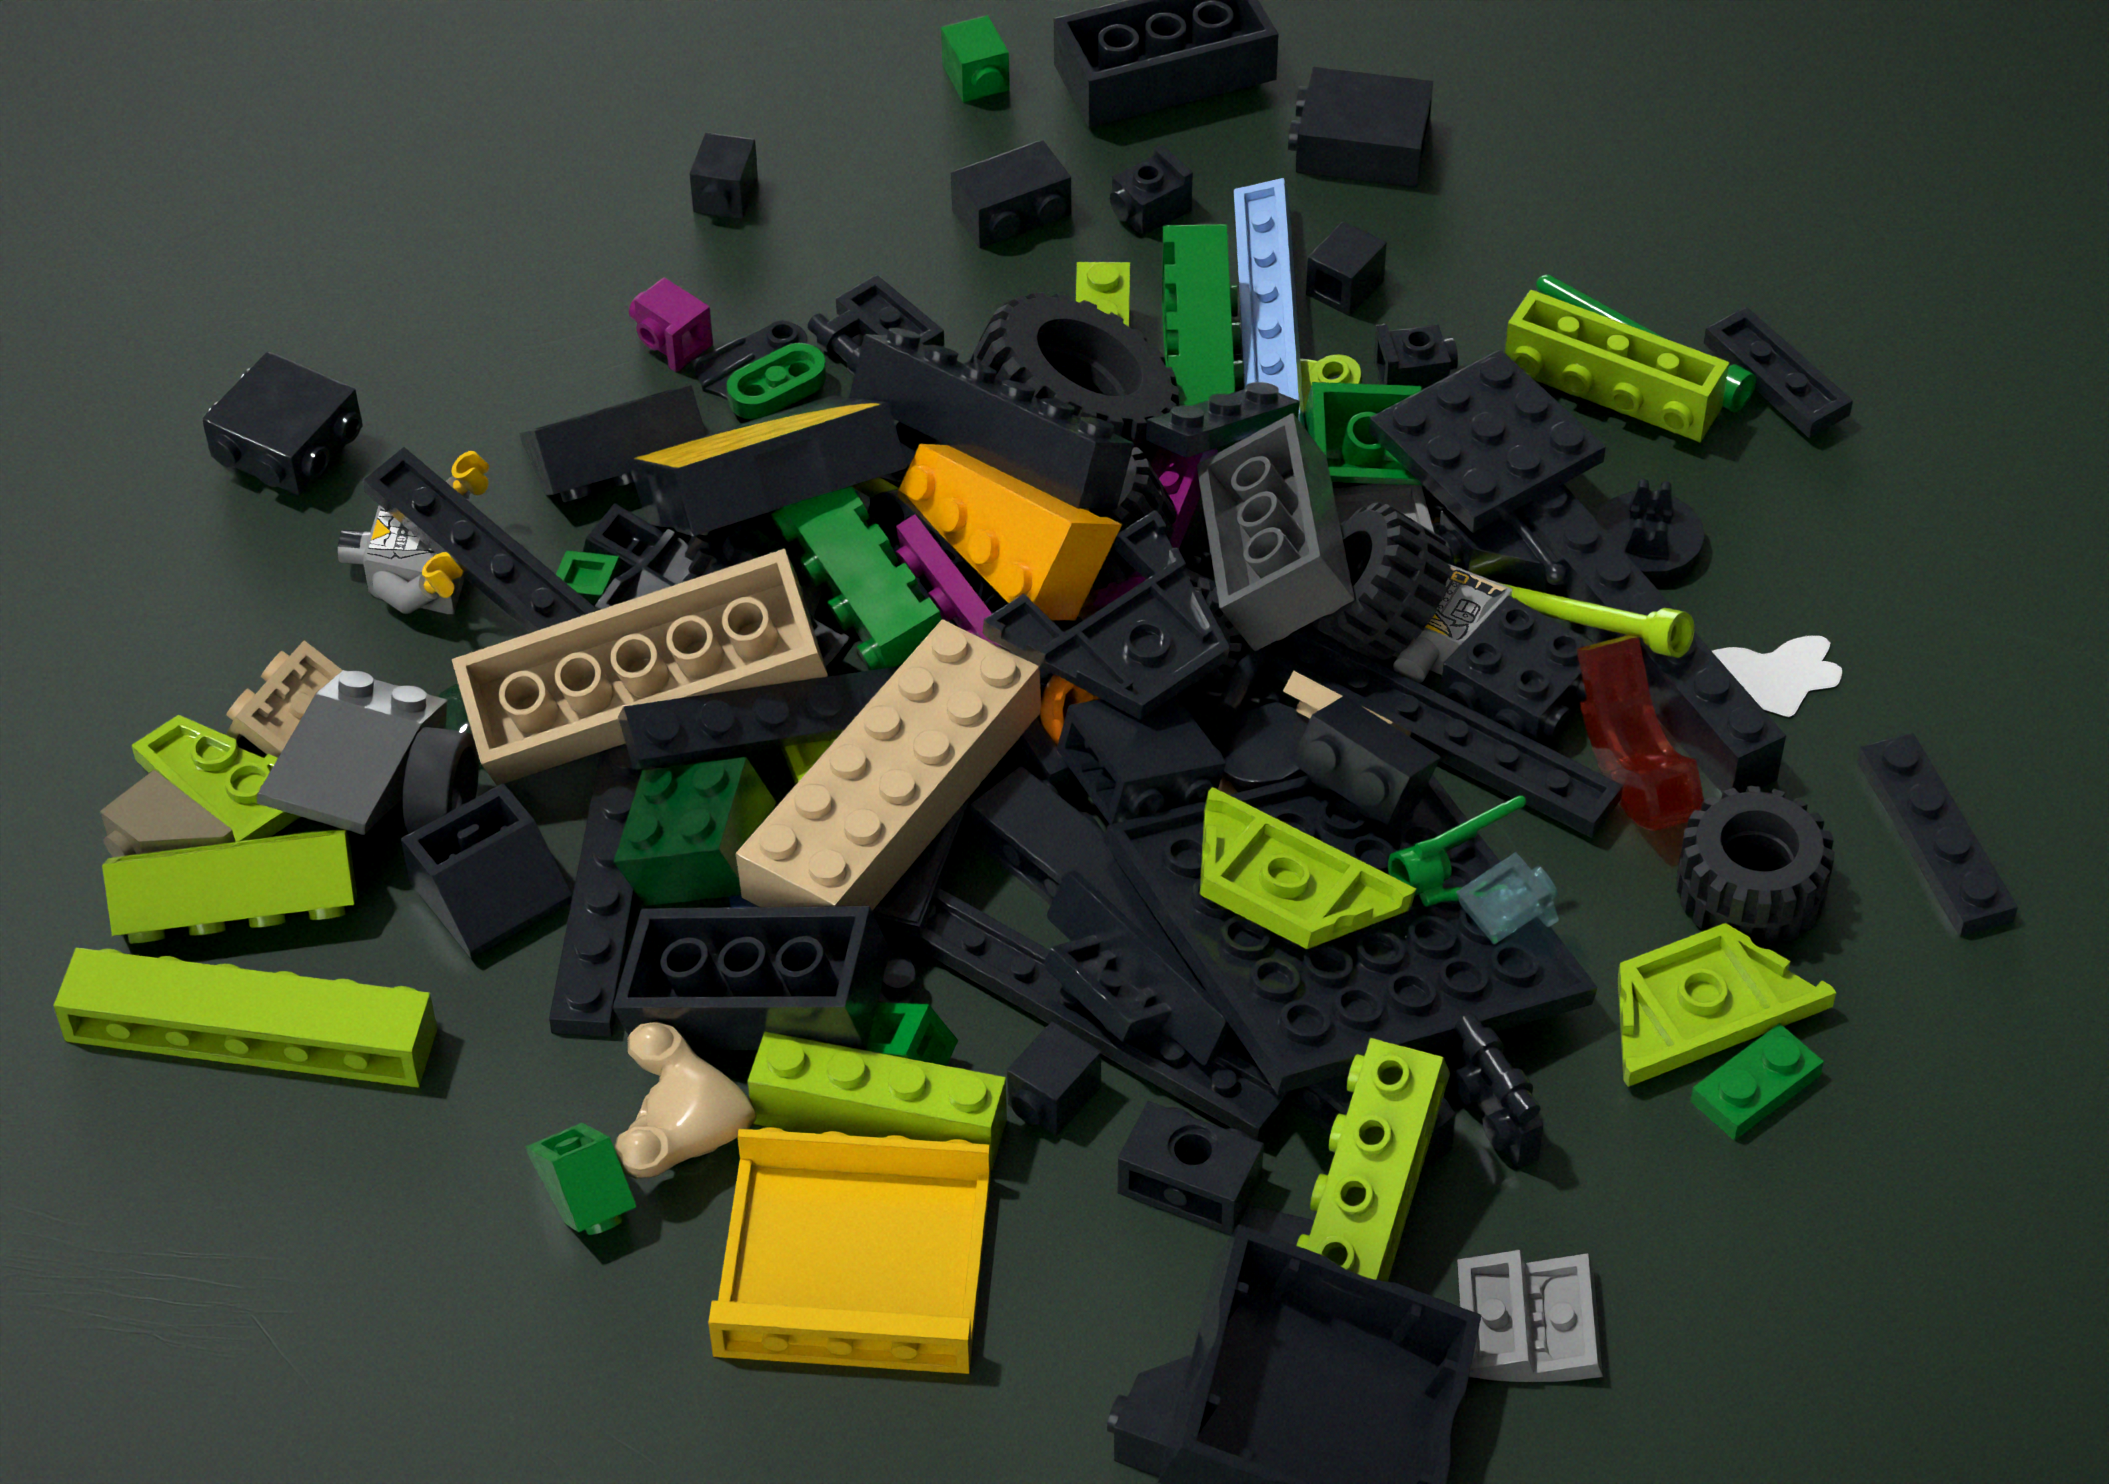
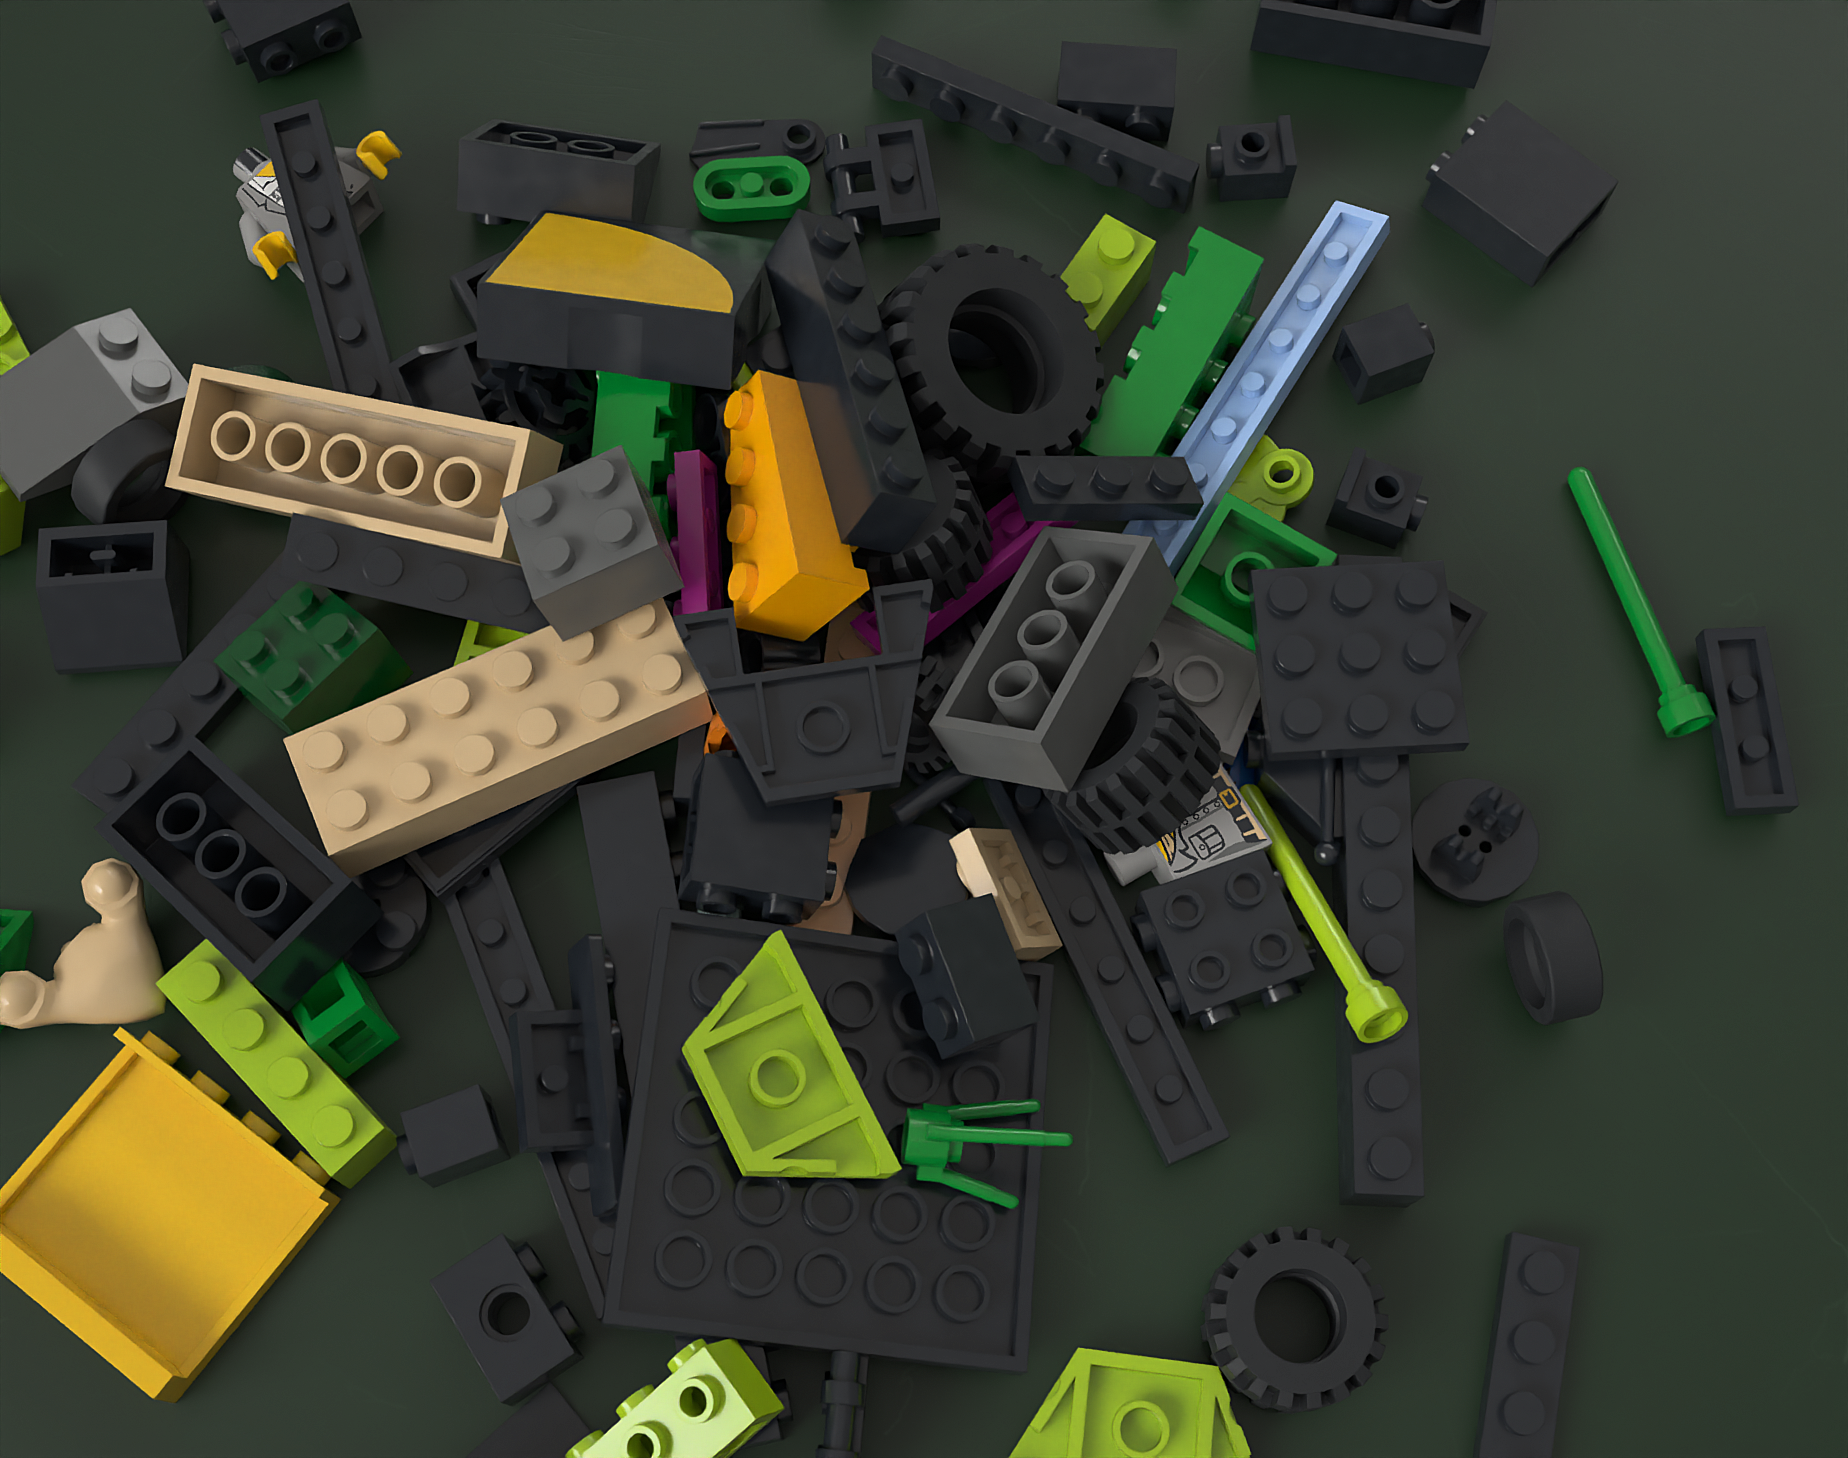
camera: 30 degrees right, 20 degrees up
(280, 703) = (100, 290): tan bracket -> none
(589, 573) = (429, 316): green plate -> none
(672, 322) = (698, 74): magenta brick -> none
(888, 599) = (591, 543): none -> dark grey brick
(964, 241) = (1034, 125): none -> black plate
(1509, 898) = (998, 1226): clear light blue bracket -> none
(1617, 365) = (1571, 627): lime brick -> none
(1627, 738) = (1273, 1100): clear red arch -> none
(1776, 545) = (1553, 957): none -> black tyre
(1784, 676) = (1493, 1085): white sticker -> none

